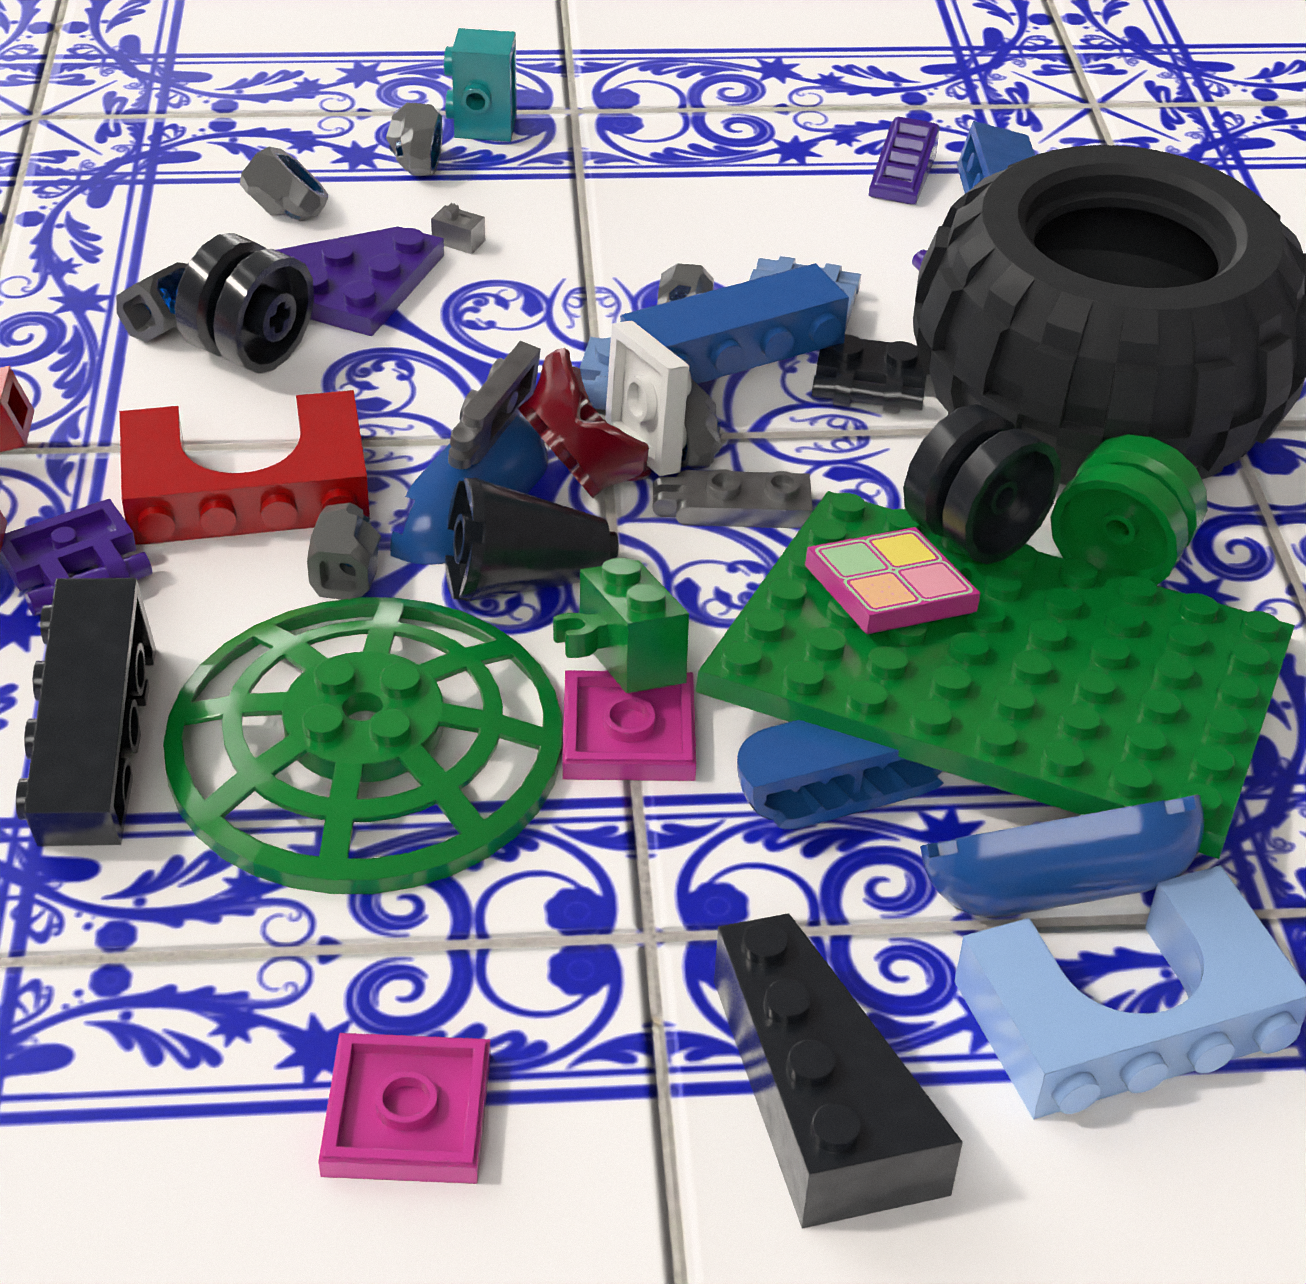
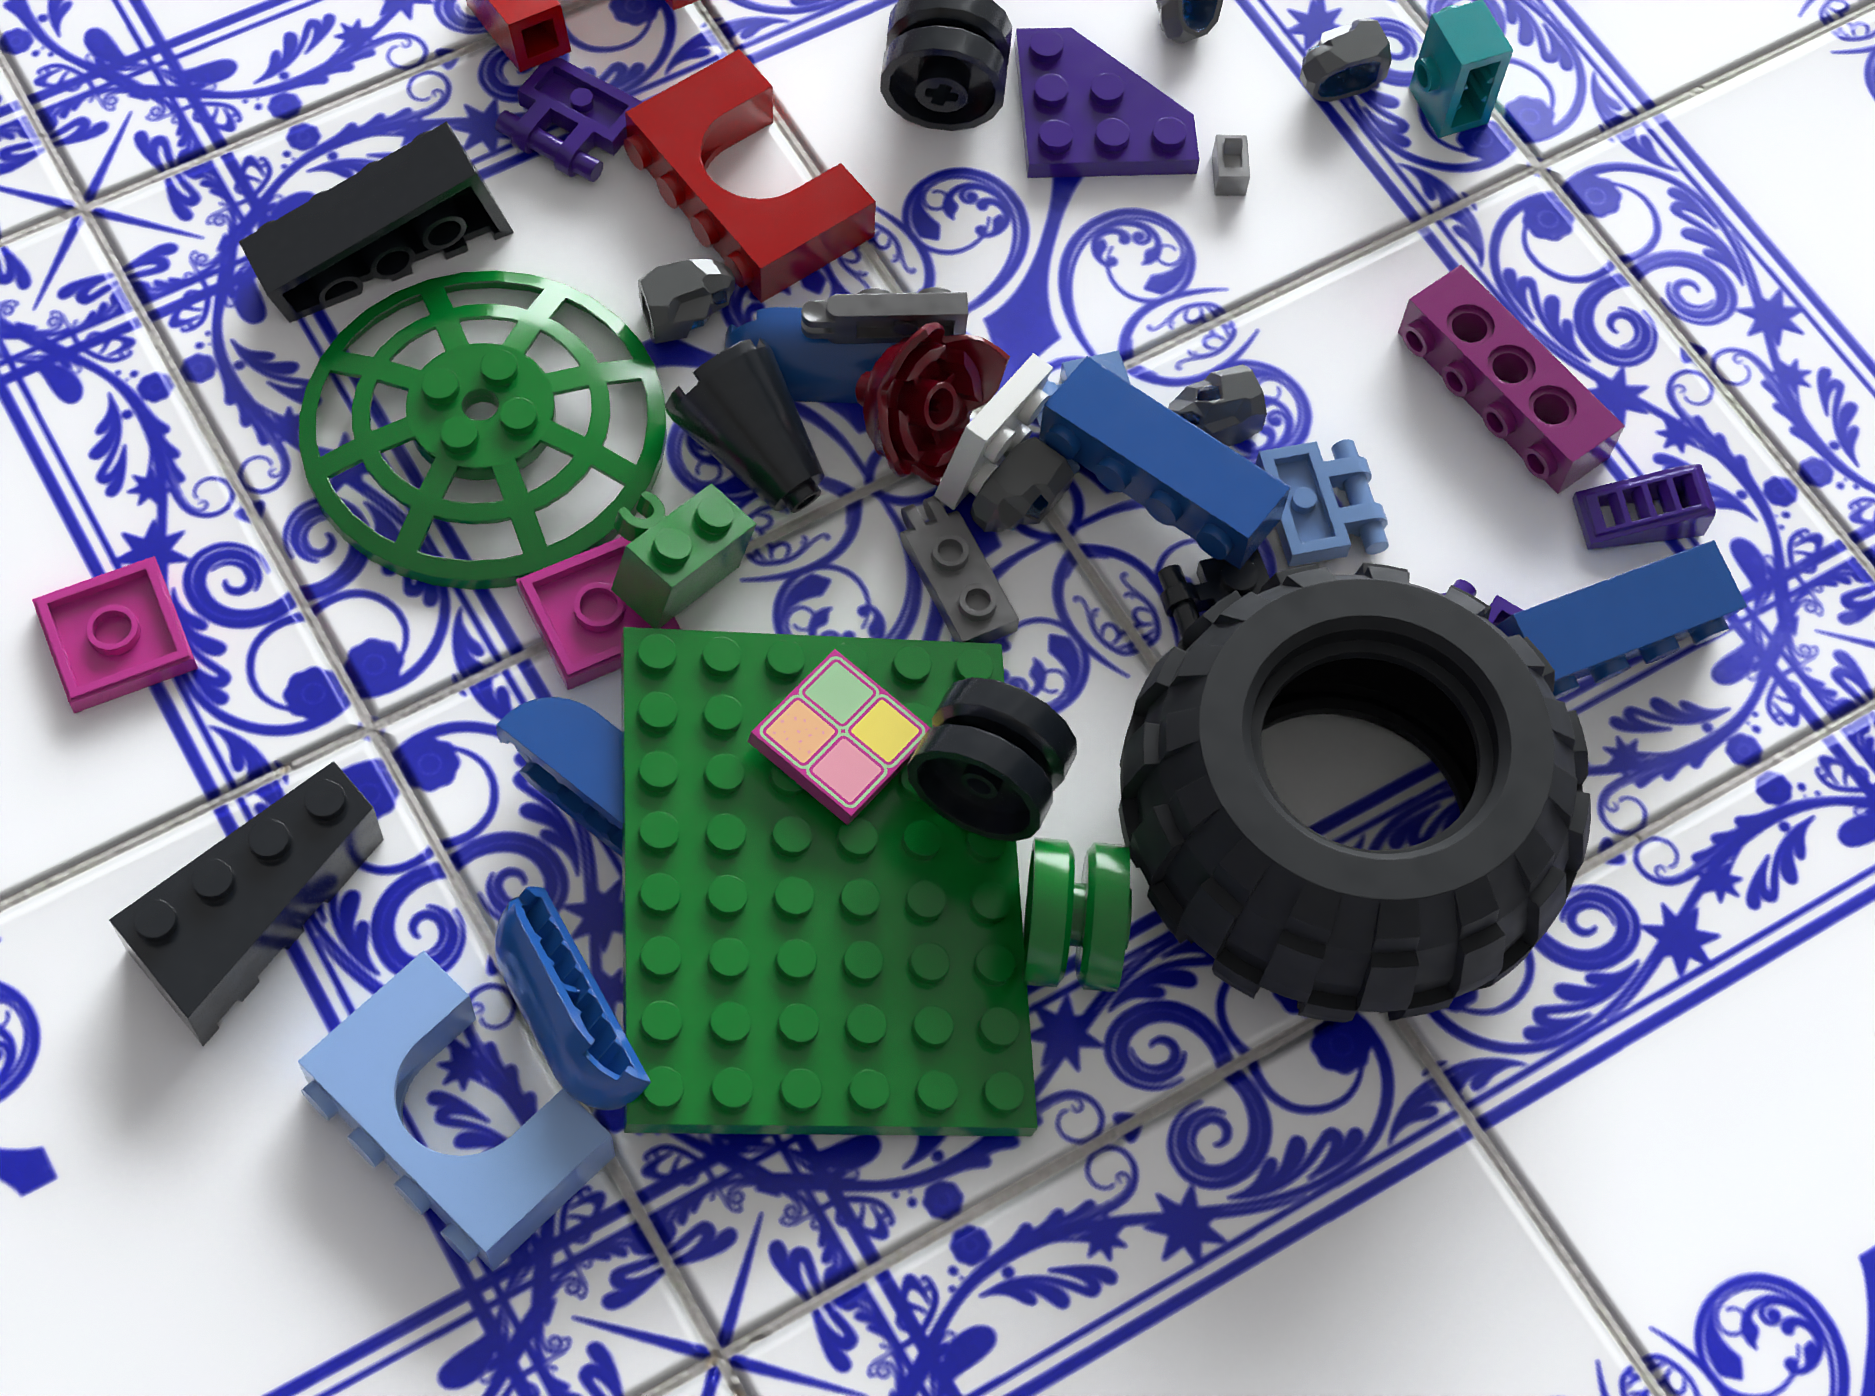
camera: 60 degrees right, 20 degrees up
(758, 172) = (1538, 387): none -> magenta brick

